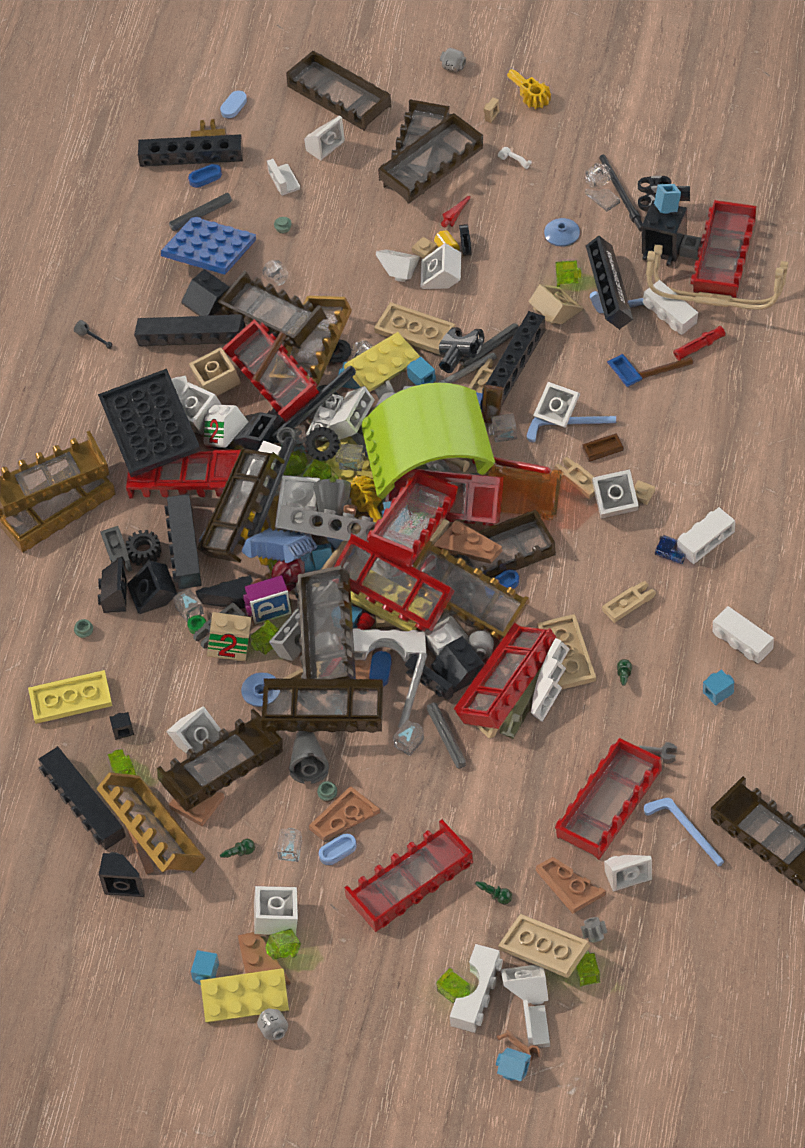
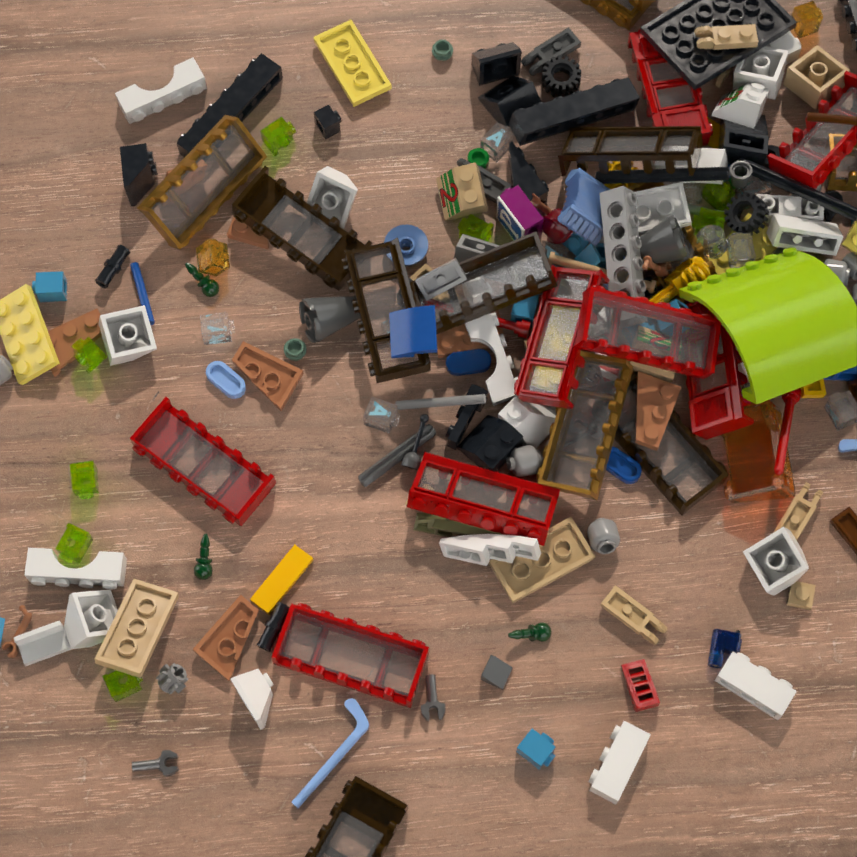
camera: 70 degrees right, 15 degrees up
(44, 868) = (139, 103): none -> white arch
(157, 363) = (807, 18): none -> clear yellow brick
(164, 414) = (727, 37): none -> tan hinge
(201, 917) = (112, 266): none -> black pin
(222, 834) = (212, 257): none -> clear yellow brick
(224, 900) = (141, 290): none -> blue bar
(312, 655) = (441, 279): none -> light grey plate
(336, 470) = (713, 241): none -> clear head
(355, 680) = (413, 331): none -> blue slope
(397, 968) = (84, 472): none -> clear neon green brick
(454, 723) = (412, 459): none -> hinge
(529, 838) = (281, 579): none -> yellow tile
(559, 605) = (603, 535): none -> light grey head
(569, 850) = (273, 627): none -> black pin
(648, 704) = (496, 672): none -> dark grey slope
(662, 955) = (159, 763): none -> flat silver bar
(693, 615) = (645, 704): none -> red slope

